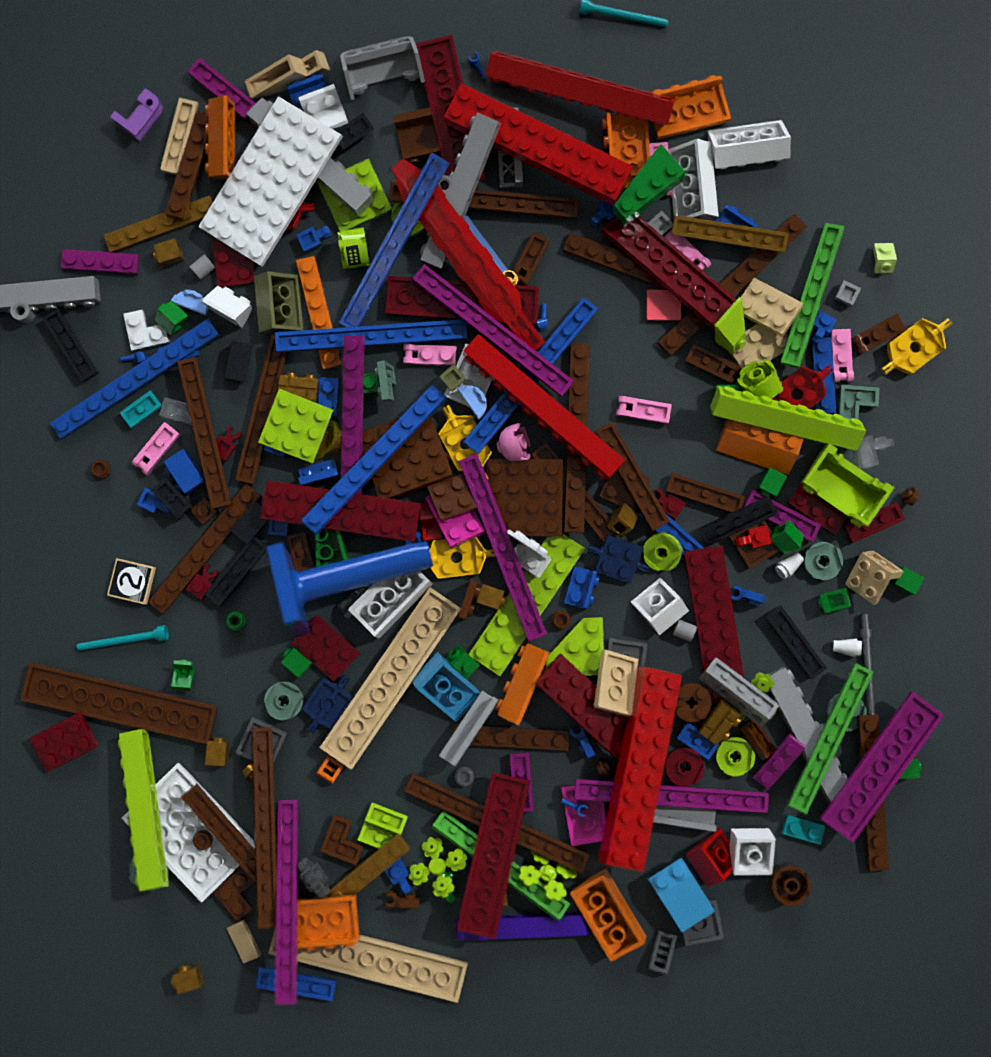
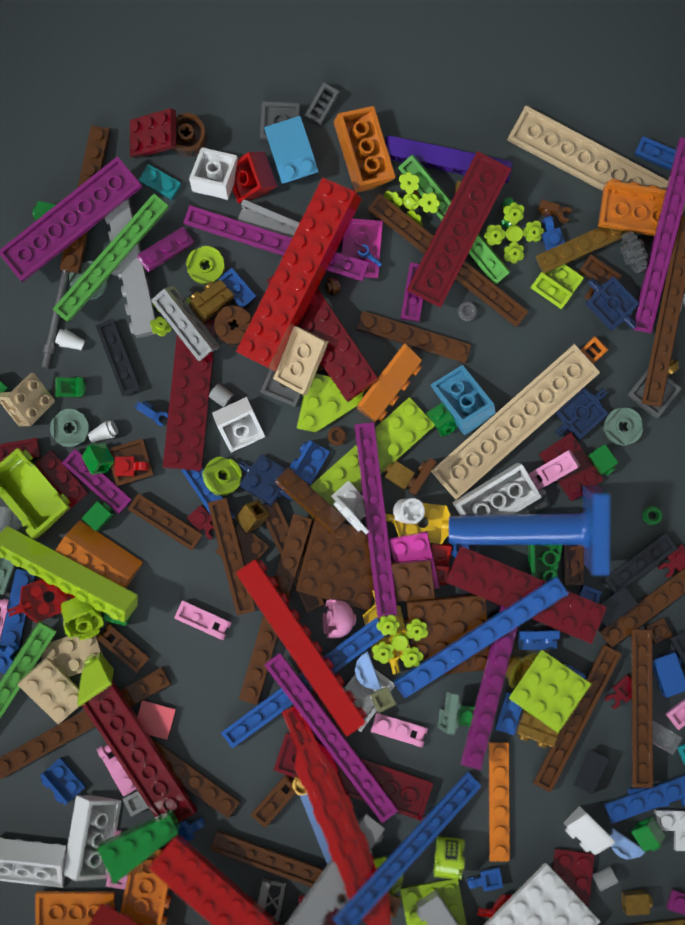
camera: 165 degrees left, 0 degrees up
(278, 302) = (537, 821): olive slope -> none
(323, 820) = (612, 303): none -> dark blue plate
(342, 639) = (554, 469): none -> bright pink plate
(374, 335) = (450, 763): blue plate -> none
(450, 436) = (399, 641): none -> lime plant
(468, 728) = (452, 354): light grey fence -> none
(473, 563) = (408, 511): none -> white piece
(542, 323) = (279, 732): blue hand -> none
(571, 549) = (310, 500): none -> reddish brown plate
(584, 745) = (345, 310): blue plate -> none
(689, 776) = (256, 257): dark red plate -> none
(730, 233) = (70, 774): pearl gold plate -> none
(738, 521) = (141, 487): black plate -> none
(758, 739) = (179, 275): reddish brown plate -> none
(824, 876) = (153, 133): none -> dark red plate

